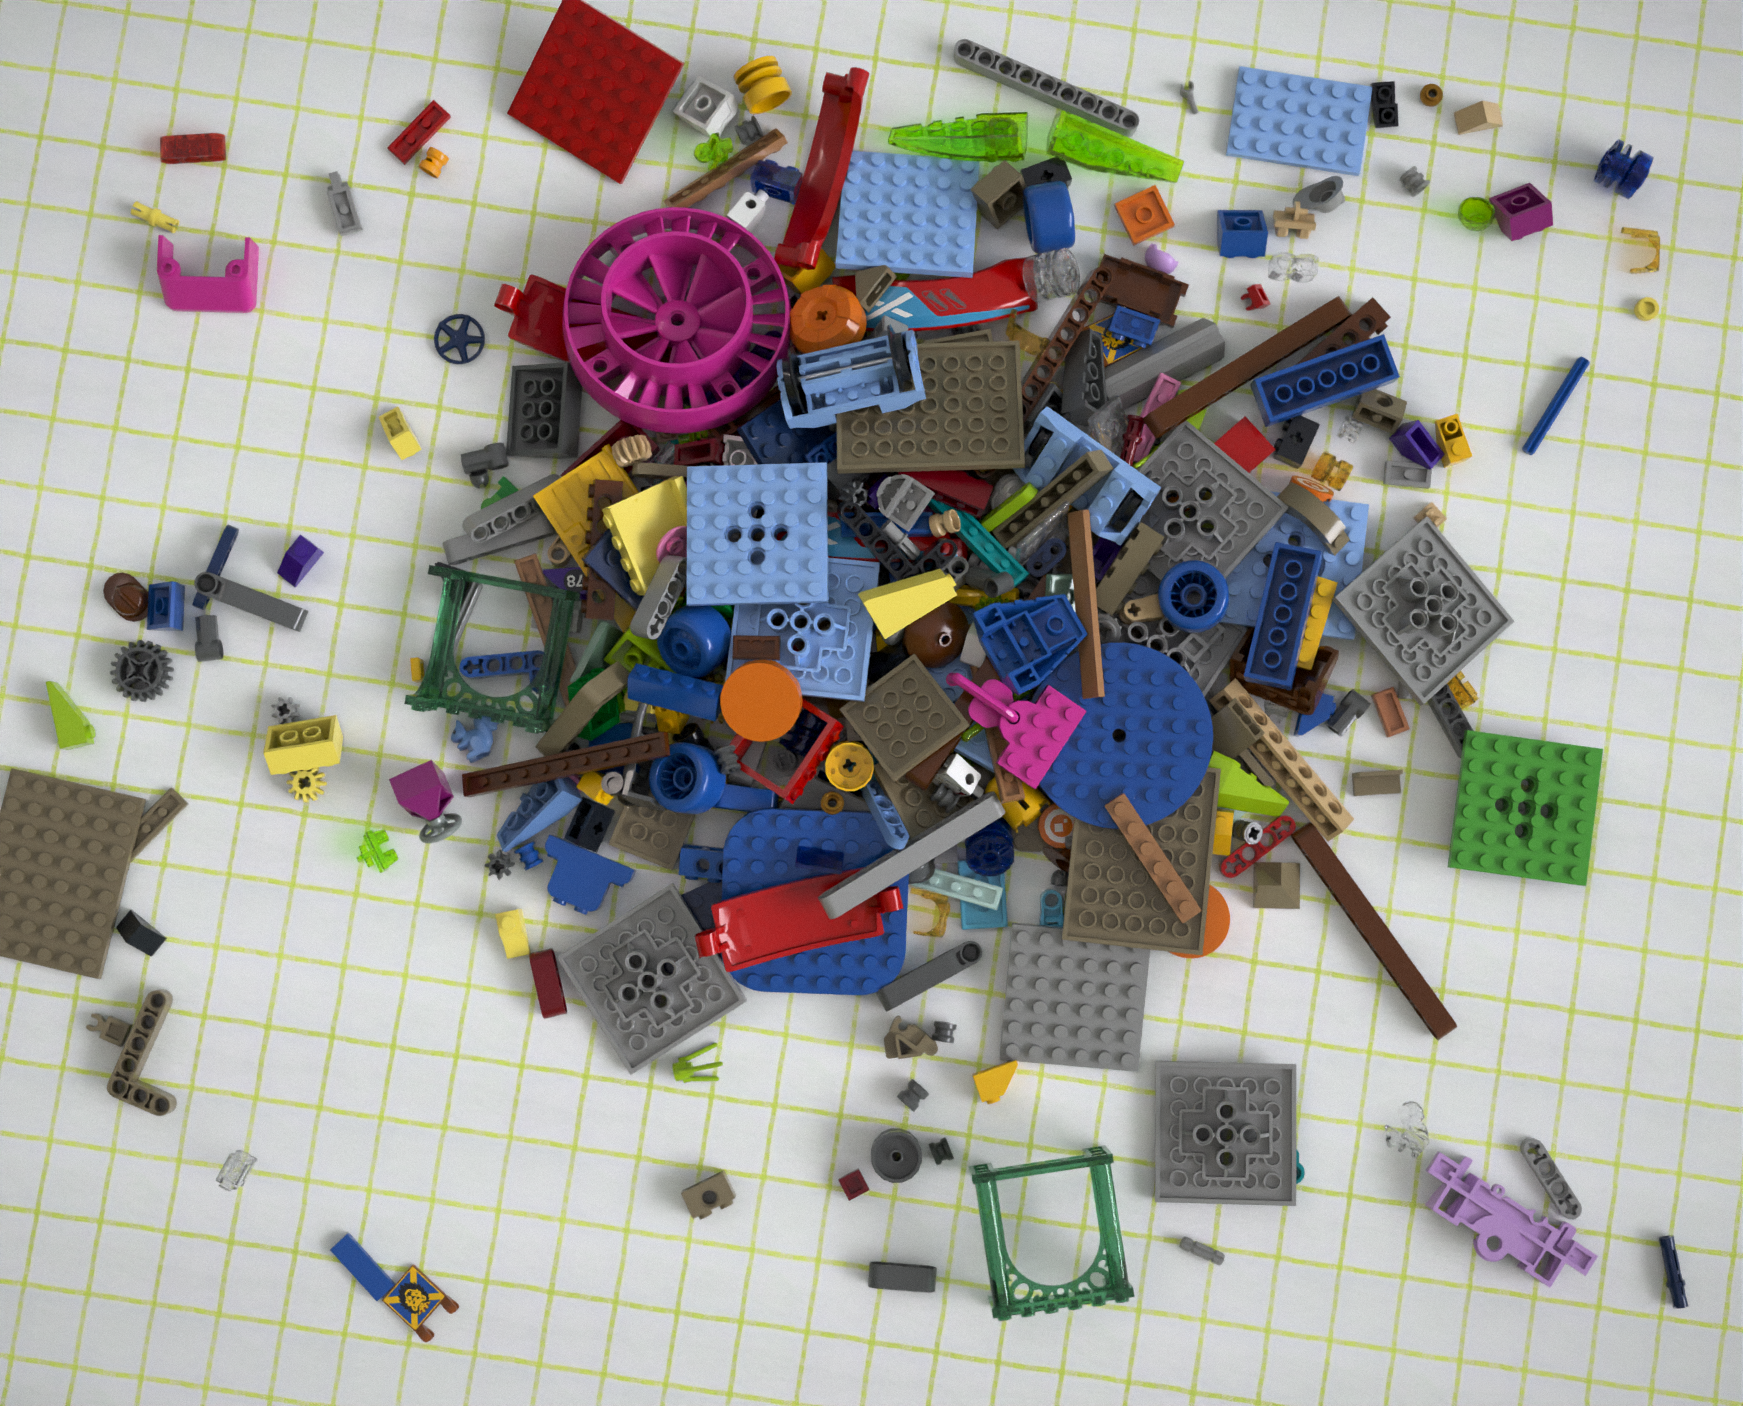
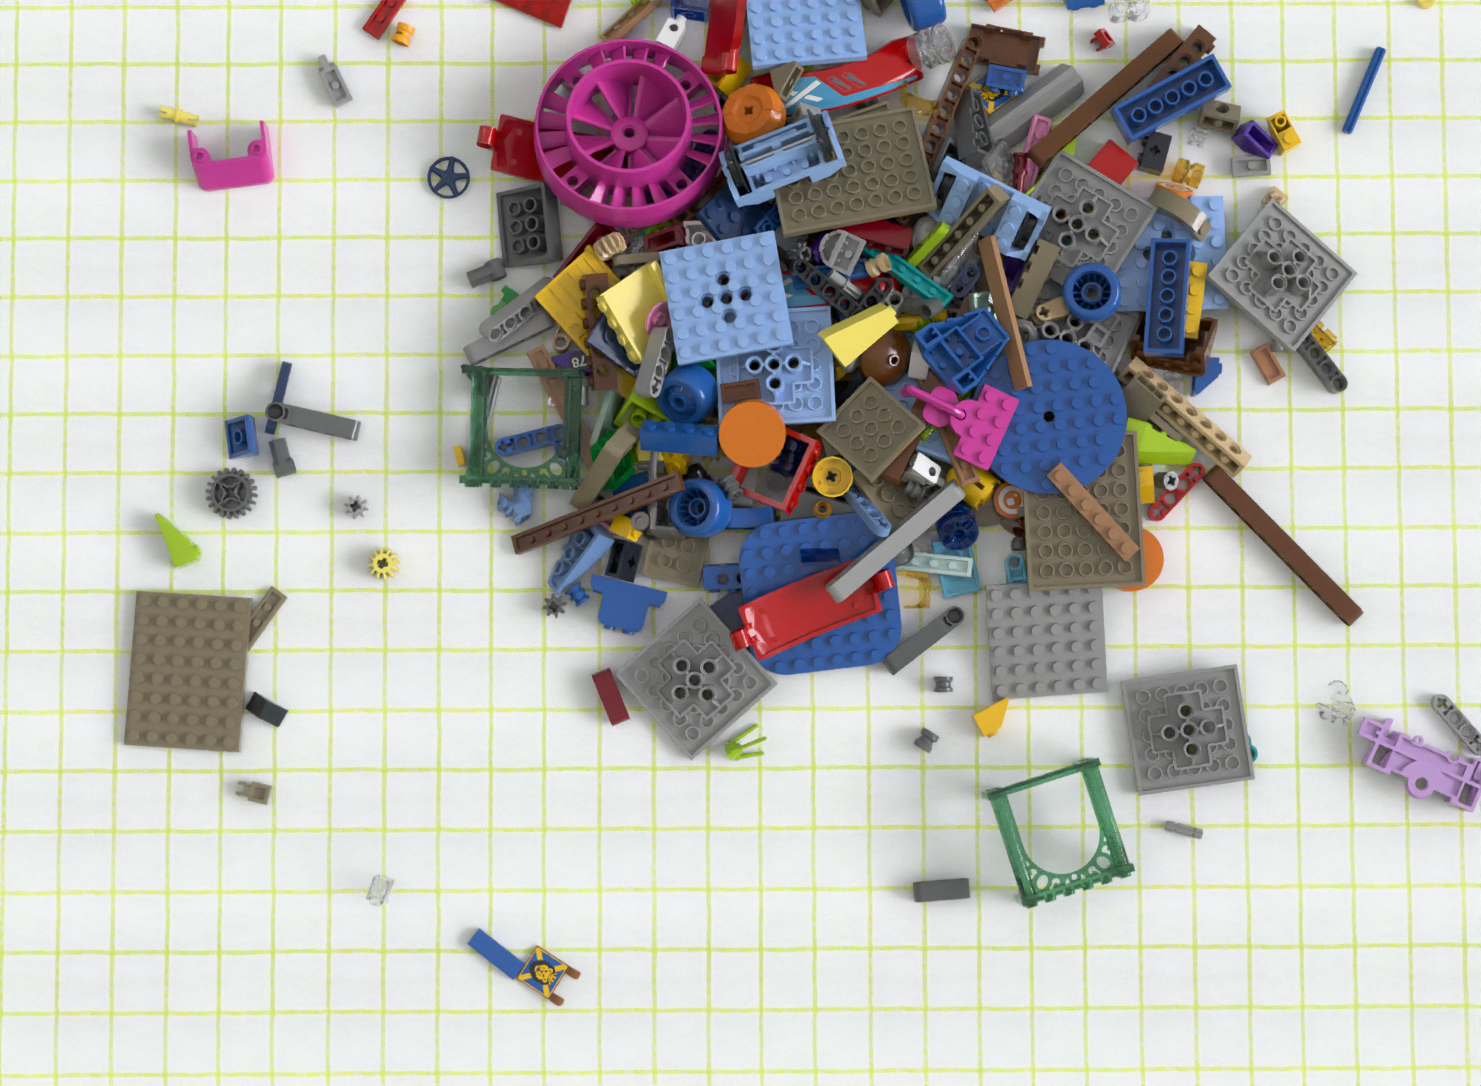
camera: 10 degrees left, 0 degrees up
(126, 596) = (207, 434): reddish brown piece -> none
(140, 1056) = (283, 810): dark tan beam -> none
(192, 148) = (200, 54): clear red beam -> none
(299, 560) = (346, 381): dark purple slope -> none
(303, 745) = (377, 532): light yellow brick -> none
(373, 841) = (448, 612): clear neon green hips -> none
(399, 433) = (412, 263): light yellow arch -> none
(425, 795) = (485, 559): magenta piece -> none
(478, 478) = (484, 290): dark grey hinge -> none
(513, 933) = (575, 660): light yellow arch -> none
(719, 1185) = (760, 852): dark tan brick -> none
(853, 1184) = (889, 821): dark red plate -> none
(896, 1141) = (909, 791): dark grey wheel -> none
(908, 1042) = (916, 696): dark tan piece -> none
(941, 1151) = (956, 782): pearl dark grey wheel -> none
(1160, 260) = (1018, 21): lavender hair -> none
(1276, 885) = (1197, 521): dark tan slope -> none
(1351, 707) = (1234, 367): dark grey piece -> none
(1376, 782) = (1265, 423): dark tan panel -> none
(1557, 776) = (1415, 396): bright green plate -> none

